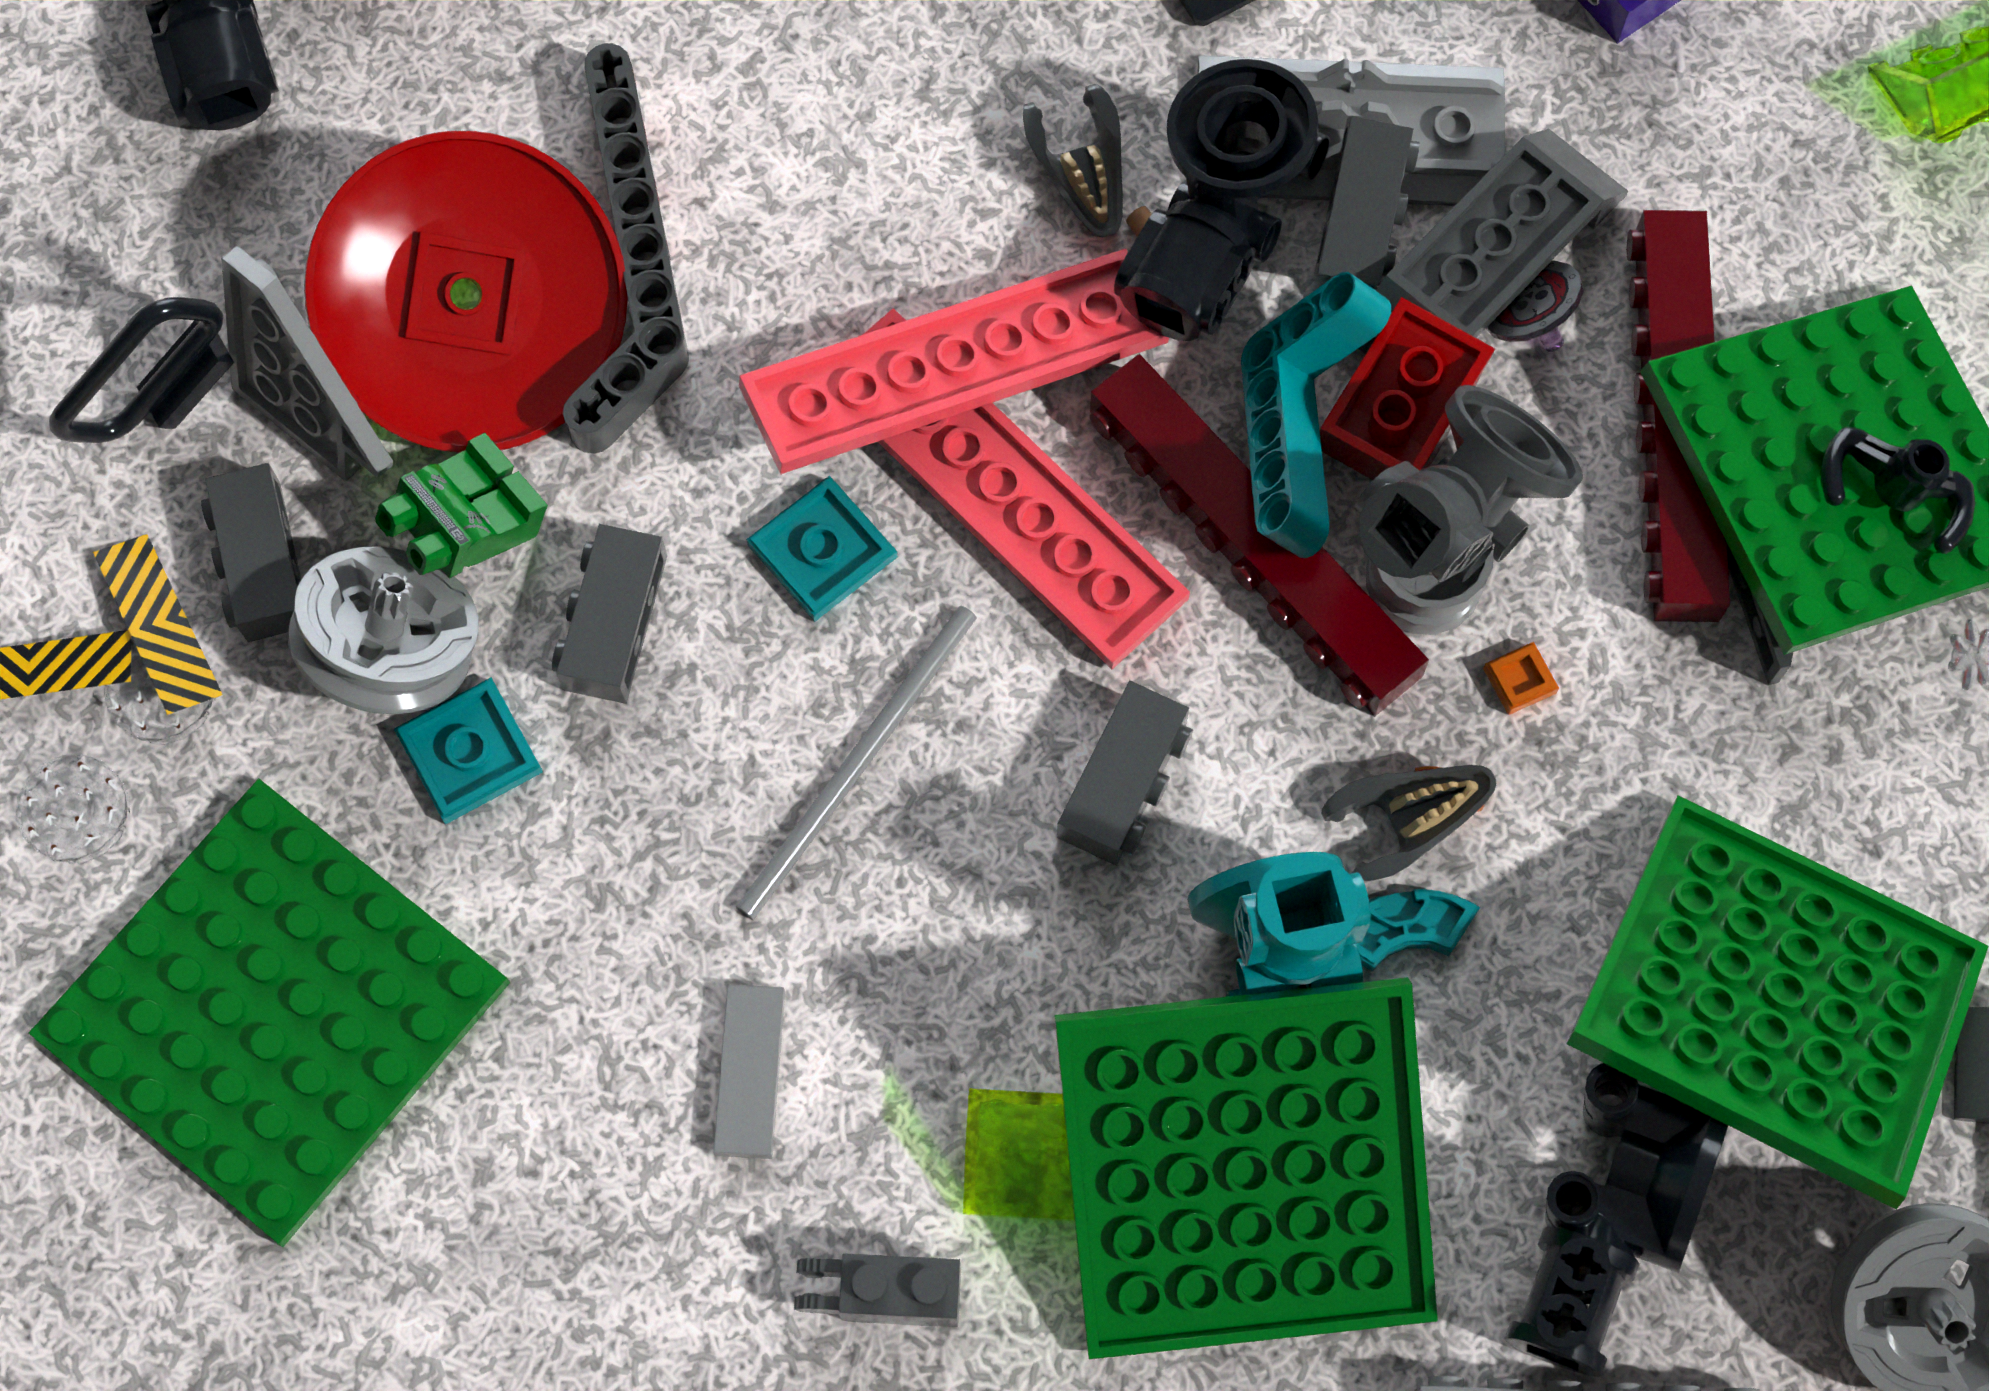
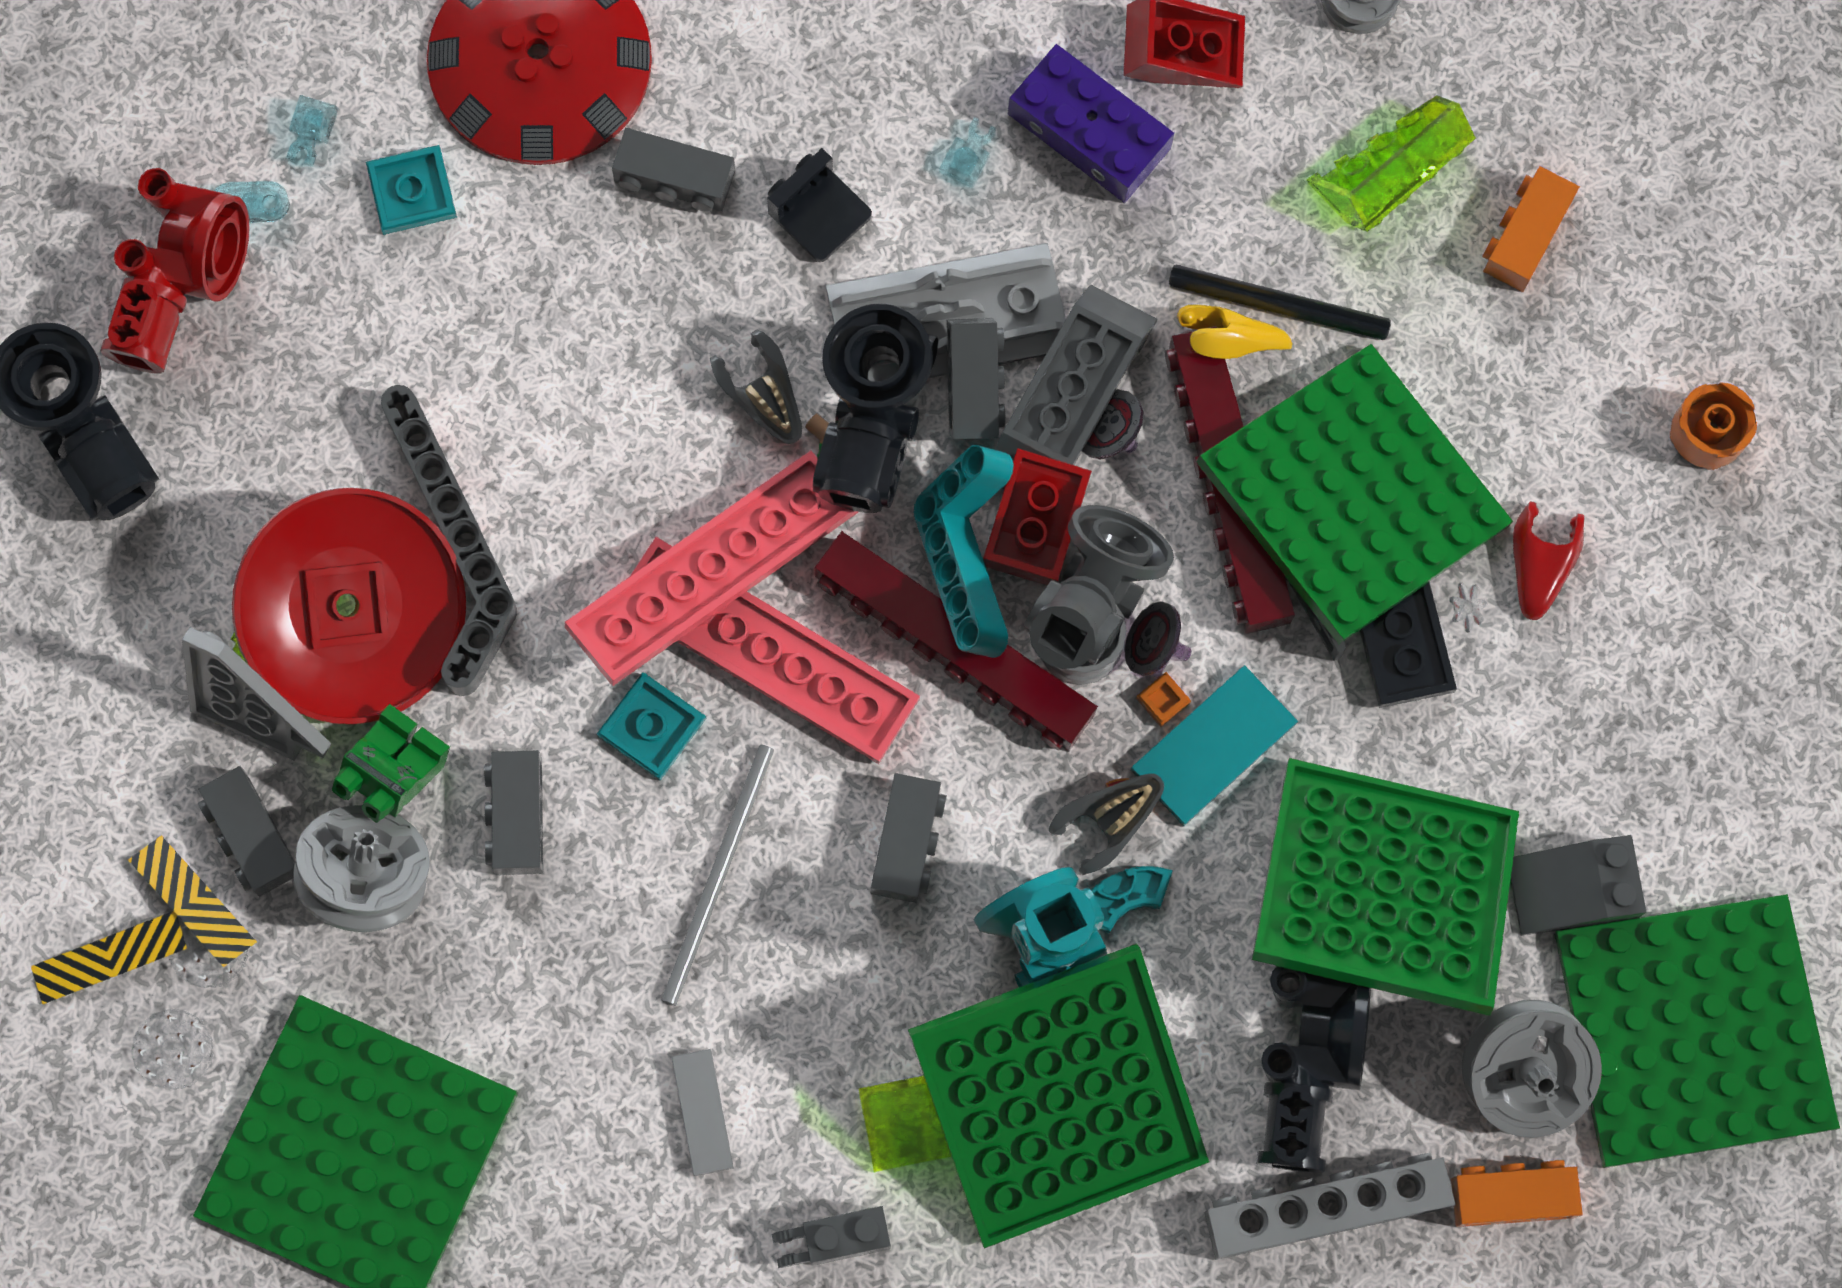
camera: 20 degrees left, 5 degrees up
(167, 390) = (146, 716): black bar -> none
(468, 750) = (442, 936): teal tile -> none
(1527, 595) = (1155, 640): none -> shield
(1580, 754) = (1216, 744): none -> teal tile
(1721, 225) = (1234, 333): none -> yellow animal
(1799, 208) = (1279, 302): none -> black axle
(1876, 694) = (1408, 652): none -> black plate
(1902, 478) = (1392, 498): black piece -> none

